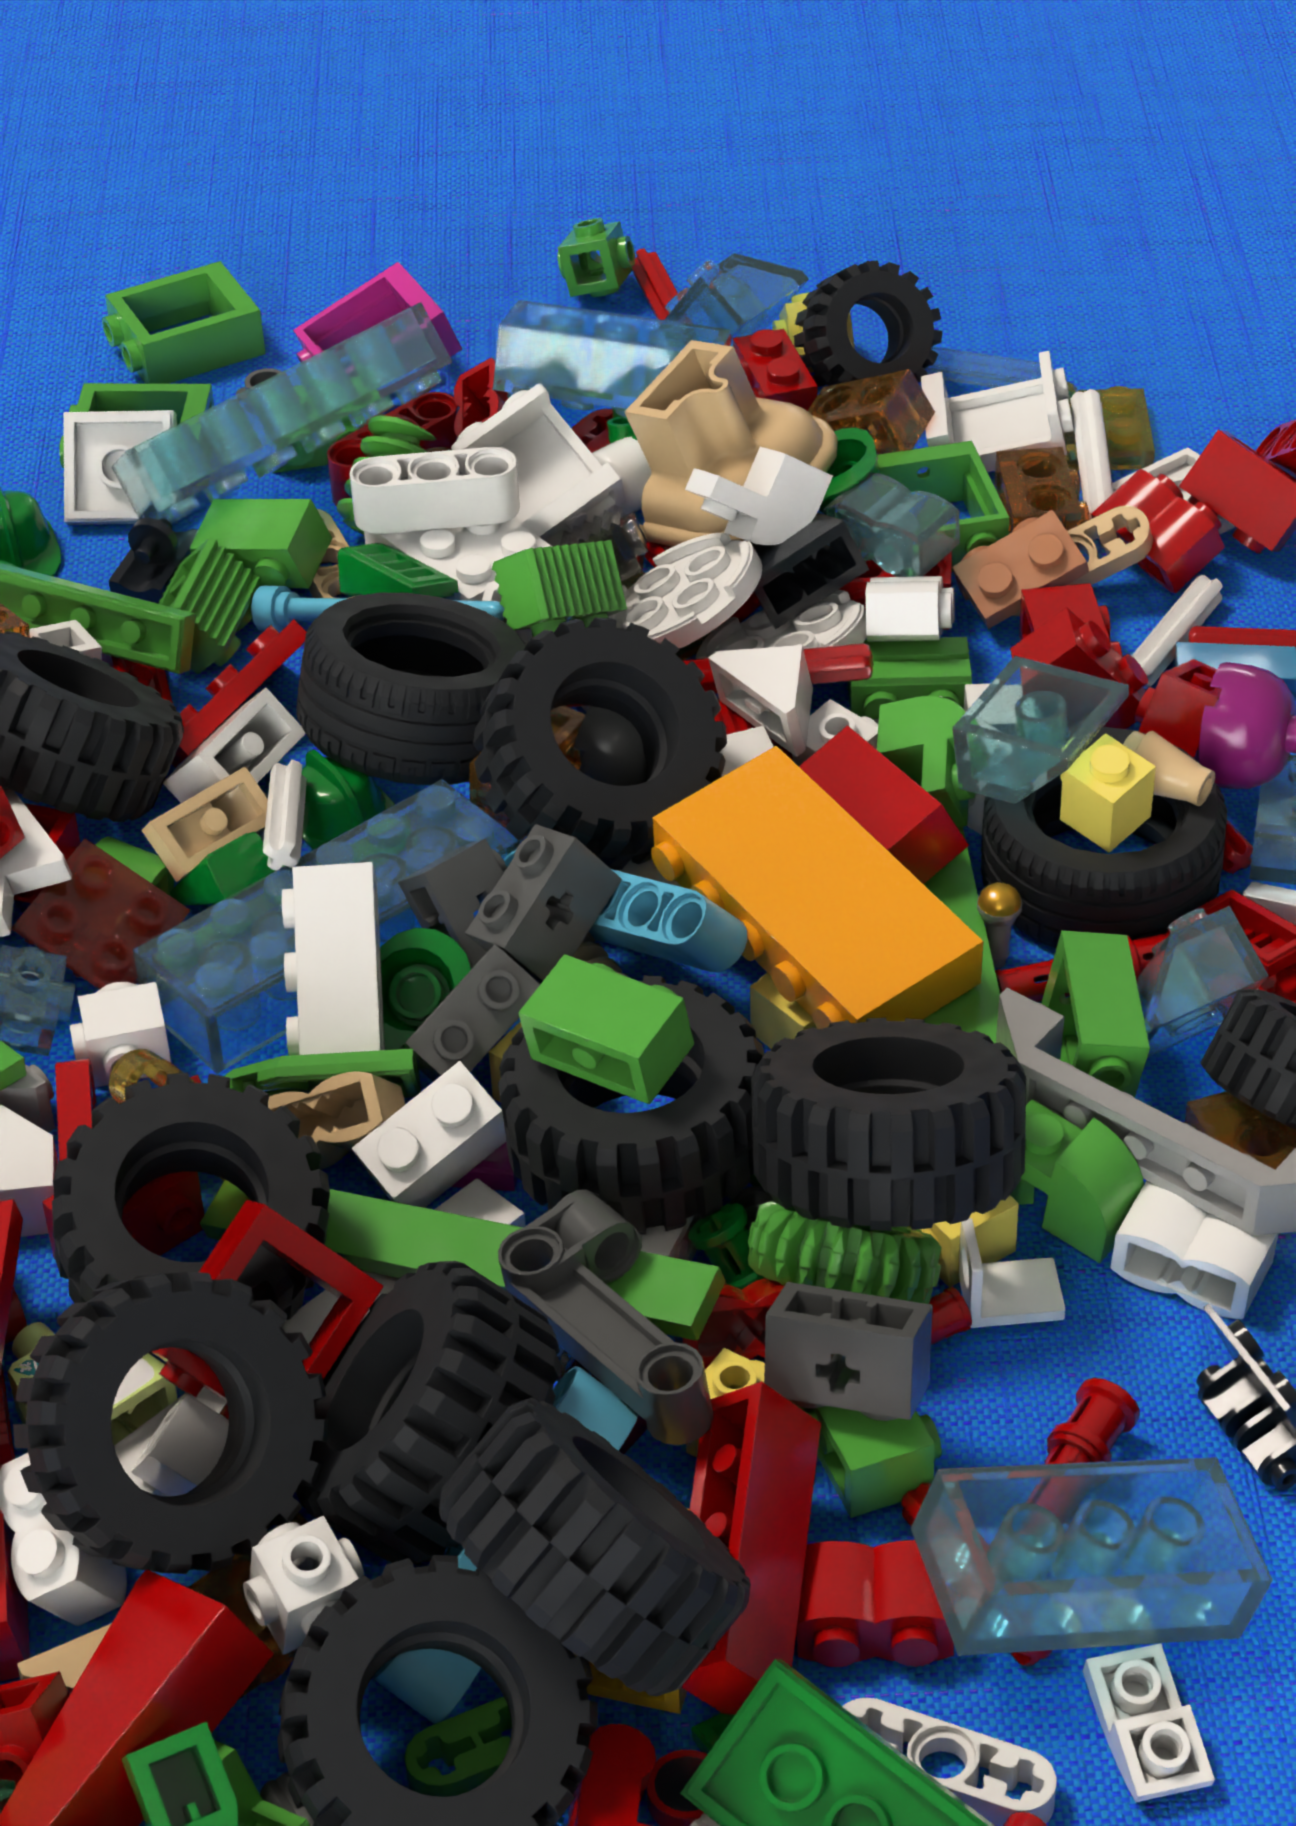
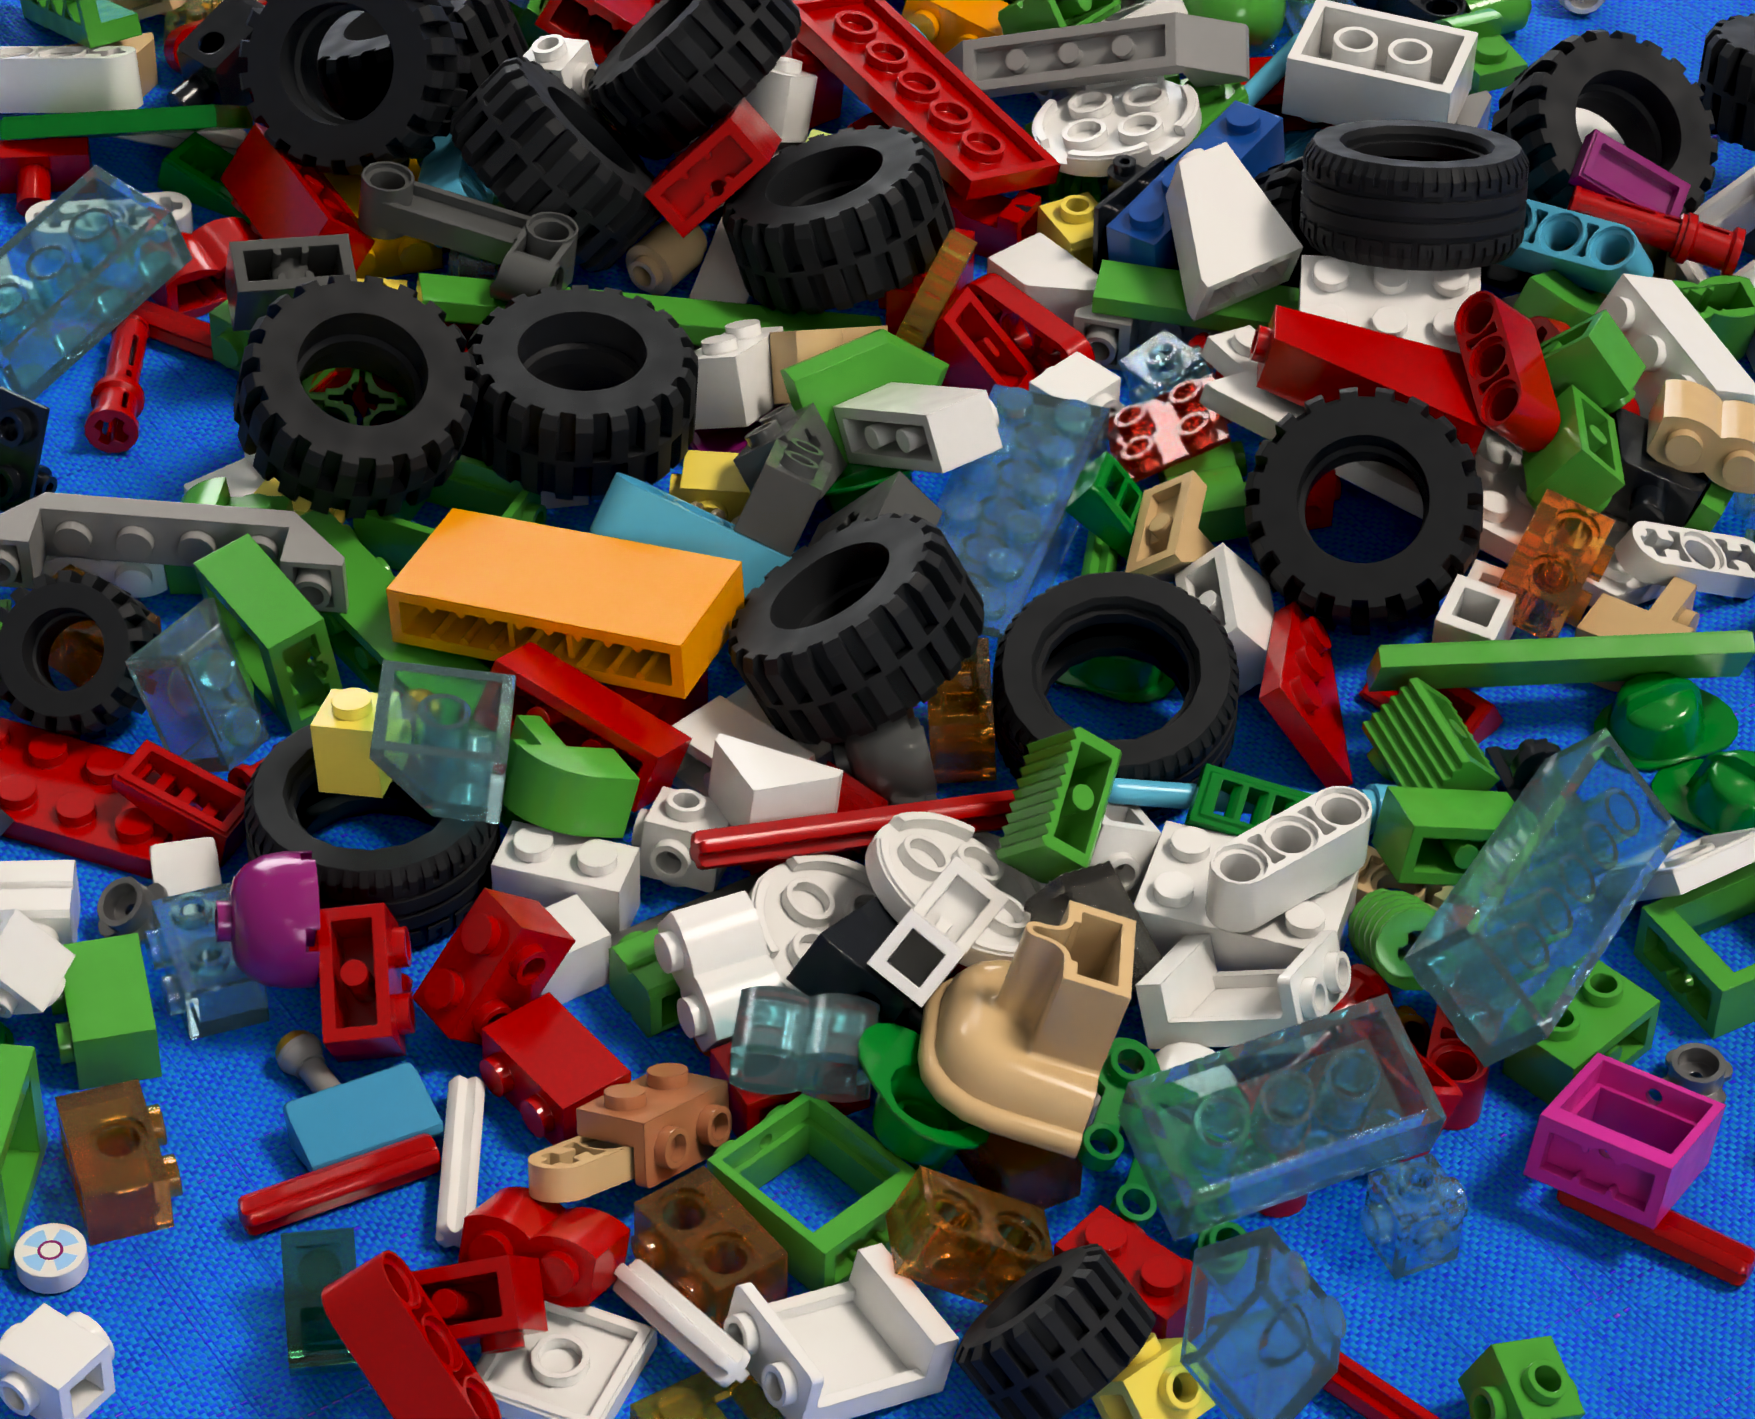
camera: 145 degrees right, 0 degrees up
(284, 815) = (1089, 523): white axle -> none
(607, 1028) = (595, 308): bright green brick -> none
(1175, 773) = (323, 801): tan cone -> none

